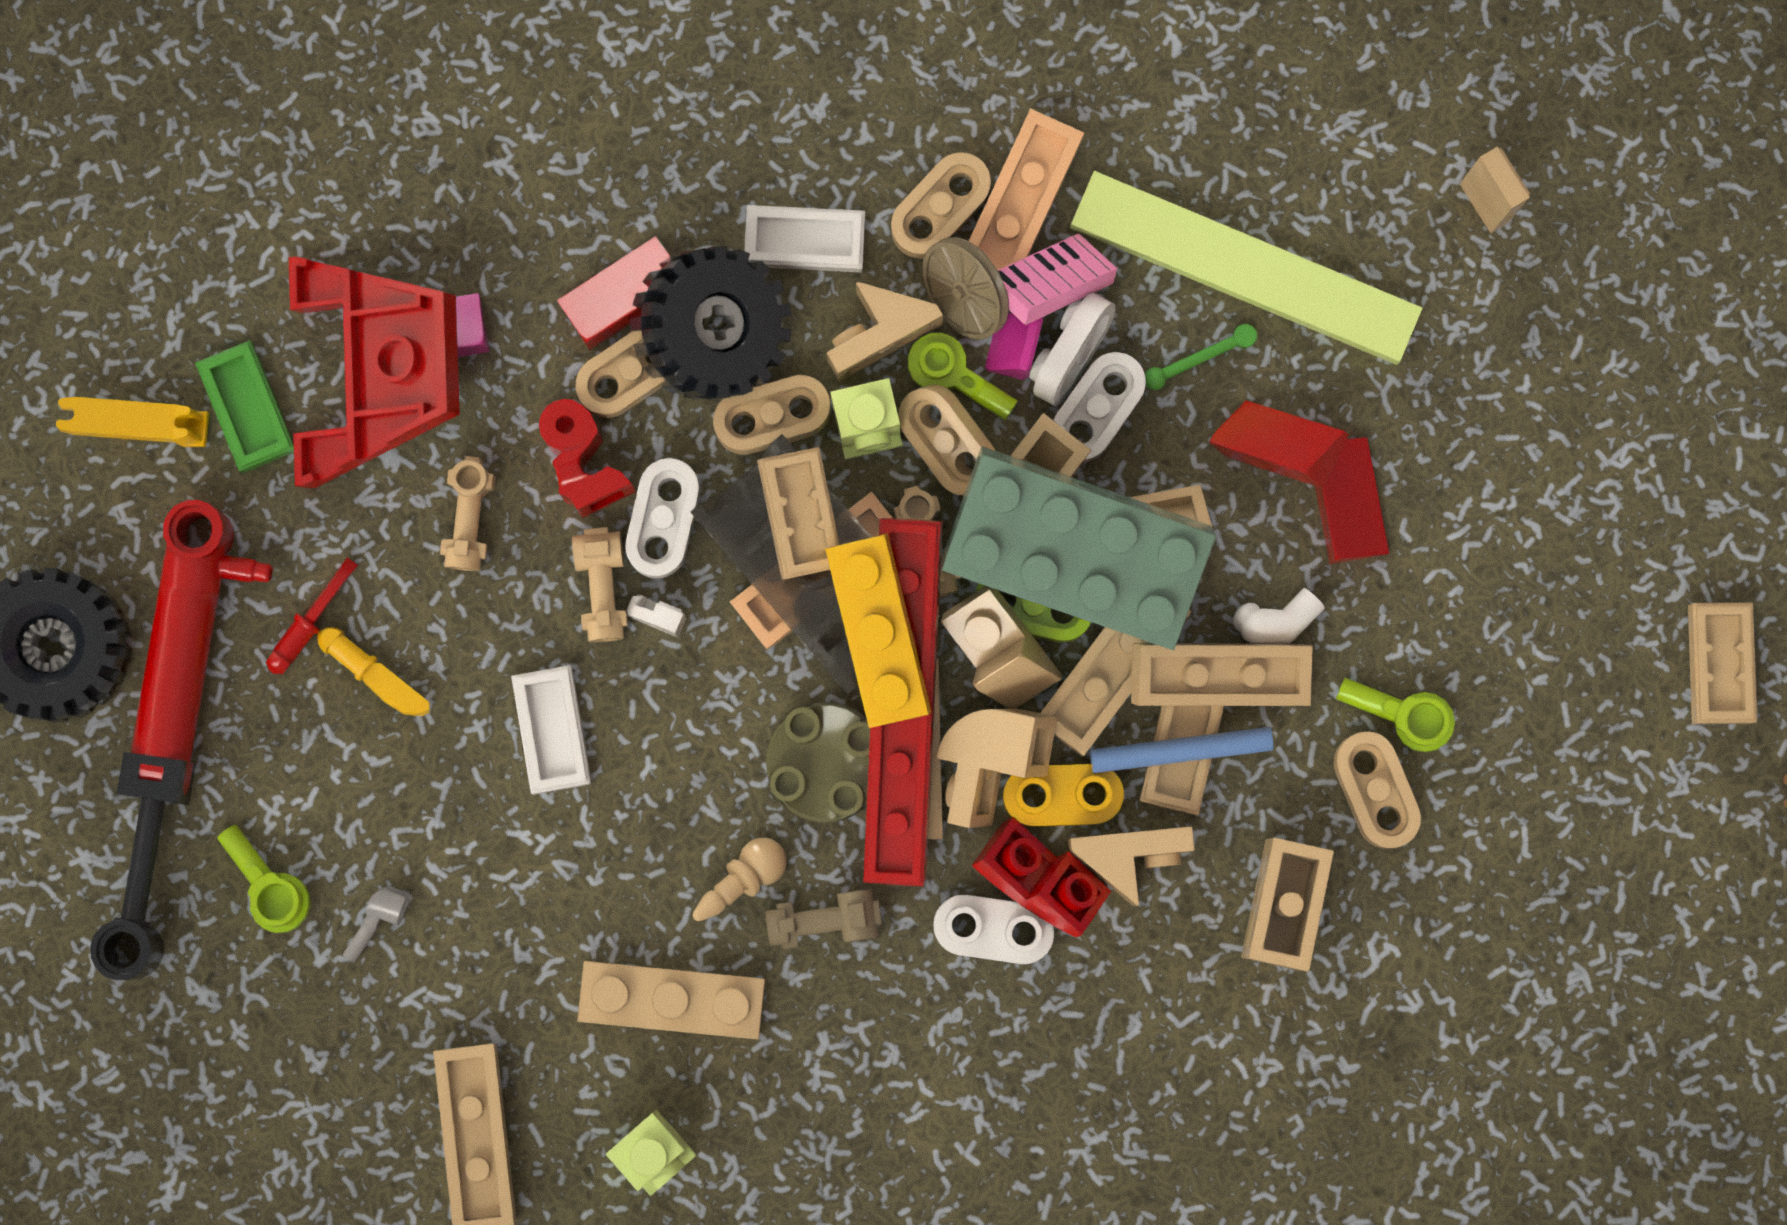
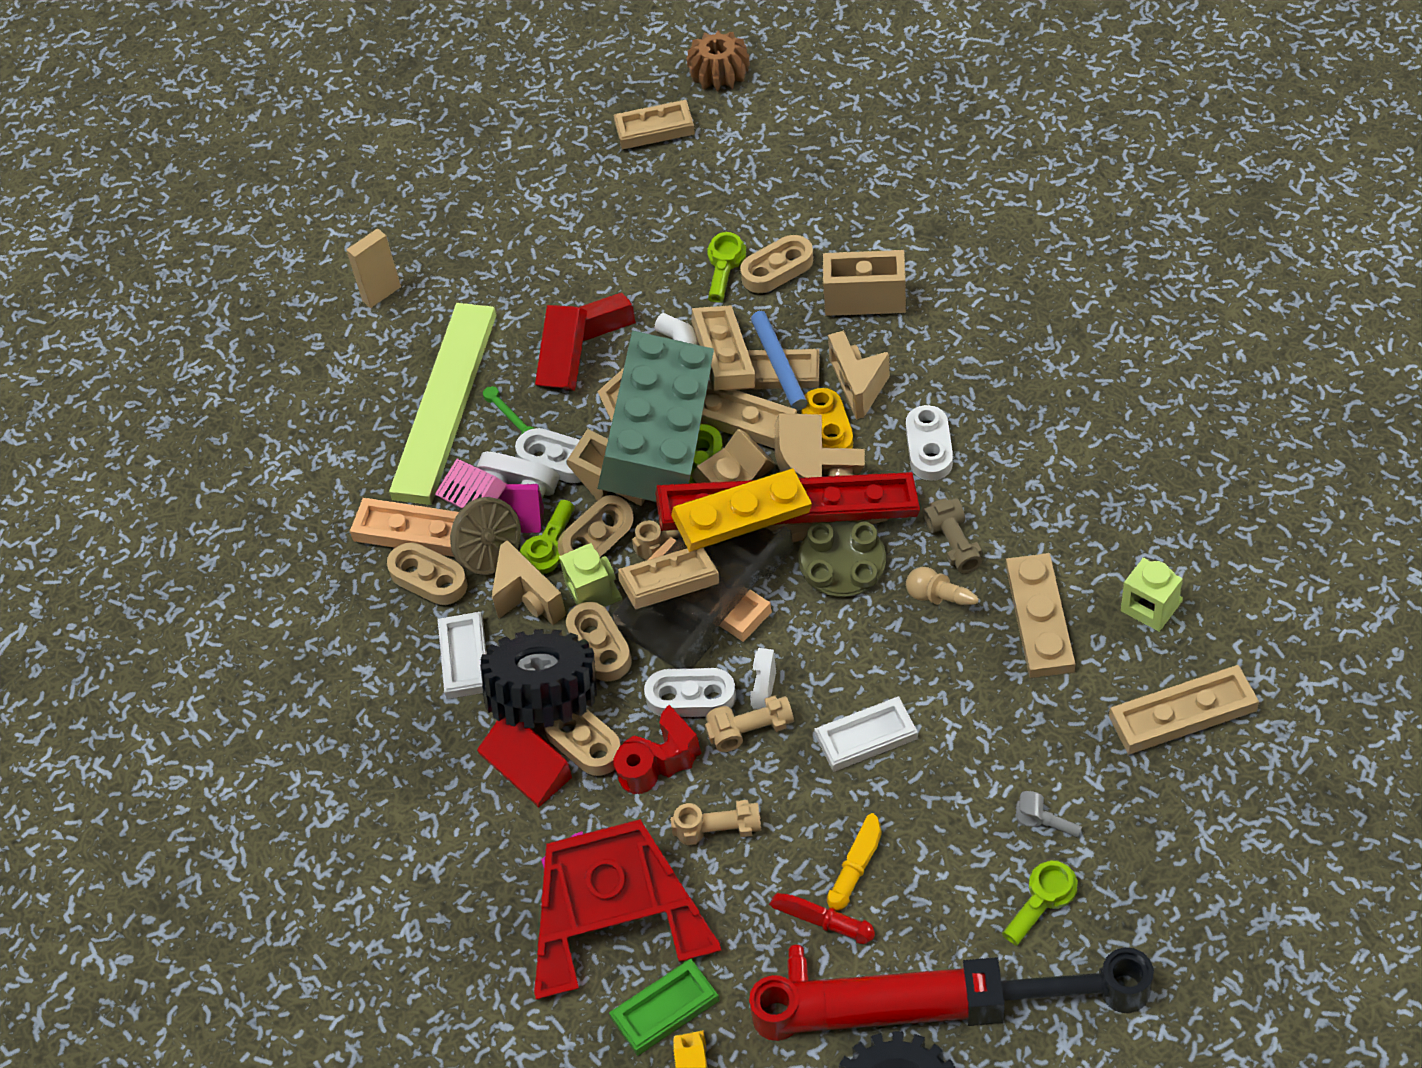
camera: 95 degrees left, 30 degrees down
(1046, 885) = (889, 417): red slope -> none

